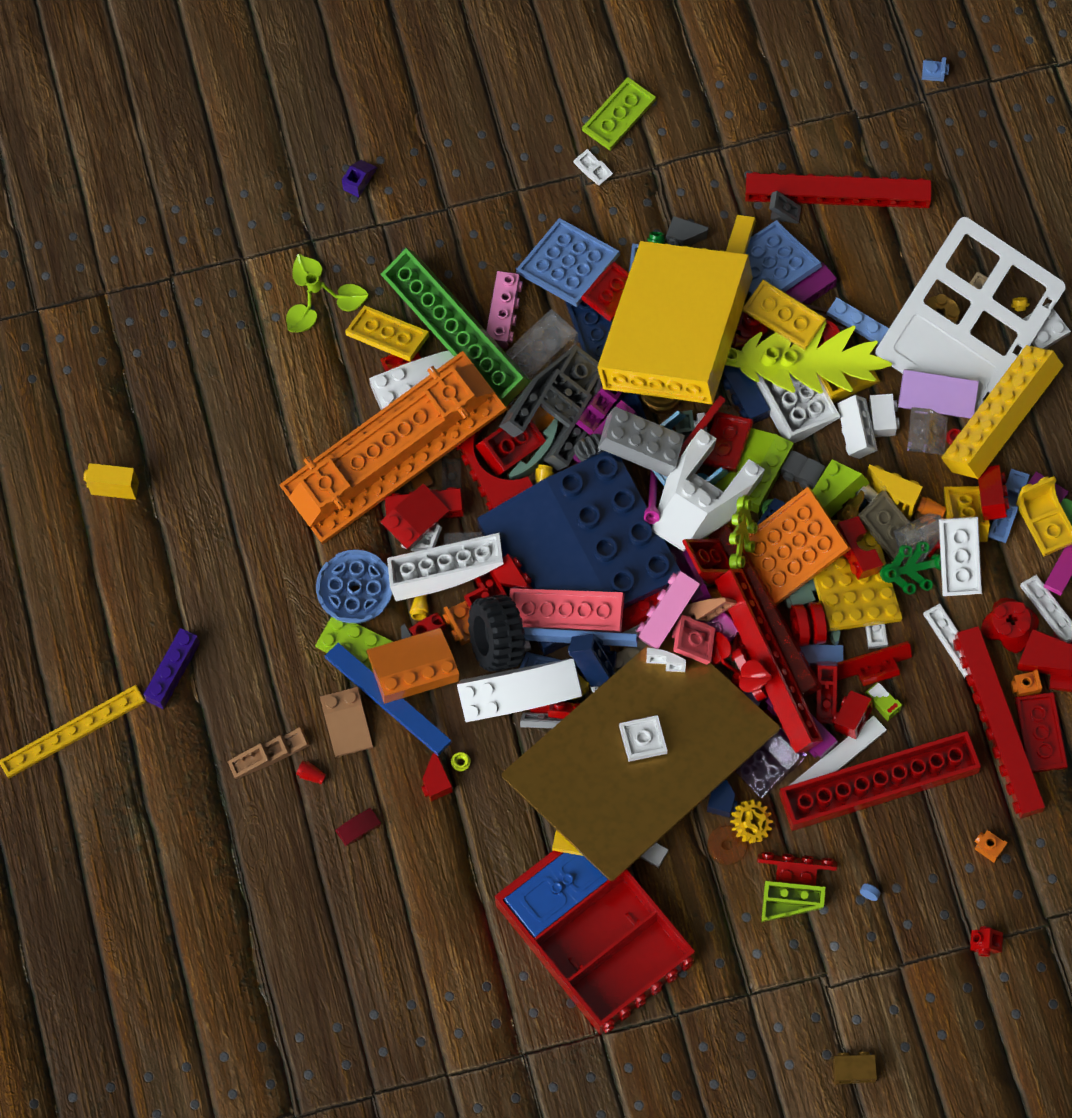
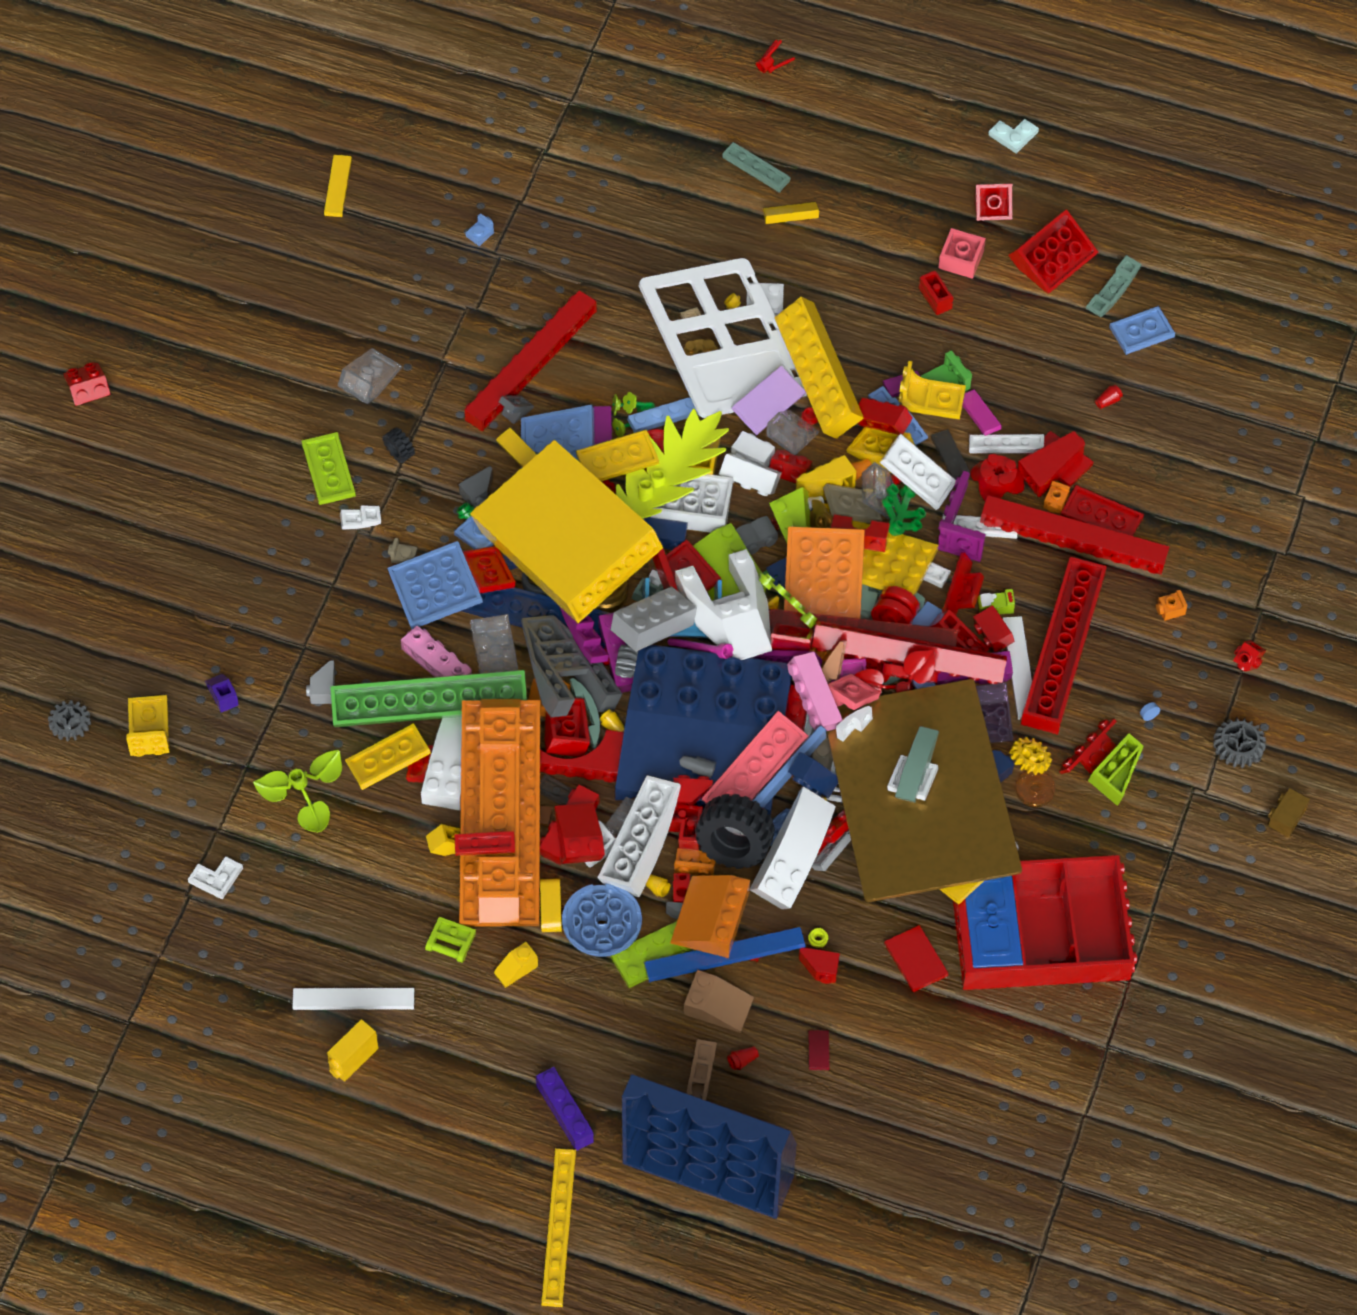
camera: 60 degrees left, 10 degrees down
(164, 453) = (352, 998): none -> white tile
(191, 791) = (706, 1146): none -> dark blue piece
(194, 289) = (216, 882): none -> white plate
(256, 91) = (71, 726): none -> dark grey gear
(269, 487) = (453, 934): none -> lime plate
(274, 550) = (516, 964): none -> yellow slope
(291, 147) = (148, 725): none -> yellow bracket
(342, 422) = (442, 840): none -> yellow slope
(343, 453) = (484, 843): none -> red plate
(344, 539) = (550, 905): none -> yellow beam
(421, 242) = (320, 683): none -> light grey slope
(496, 850) = (916, 958): none -> red tile
(535, 565) = (699, 765): none -> dark grey hinge
(582, 218) = (401, 552): none -> dark tan bracket
(651, 732) = (917, 764): none -> sand green slope
(676, 148) = (398, 445): none -> black tyre
(728, 83) = (368, 375): none -> clear slope
(847, 289) = (629, 403): none -> lime plant
(886, 989) = (1251, 742): none -> dark grey gear
(892, 452) = (790, 465): none -> red bracket
(917, 626) = (956, 538): none -> magenta bracket
(1004, 572) = (949, 453): none -> clear smoke tile

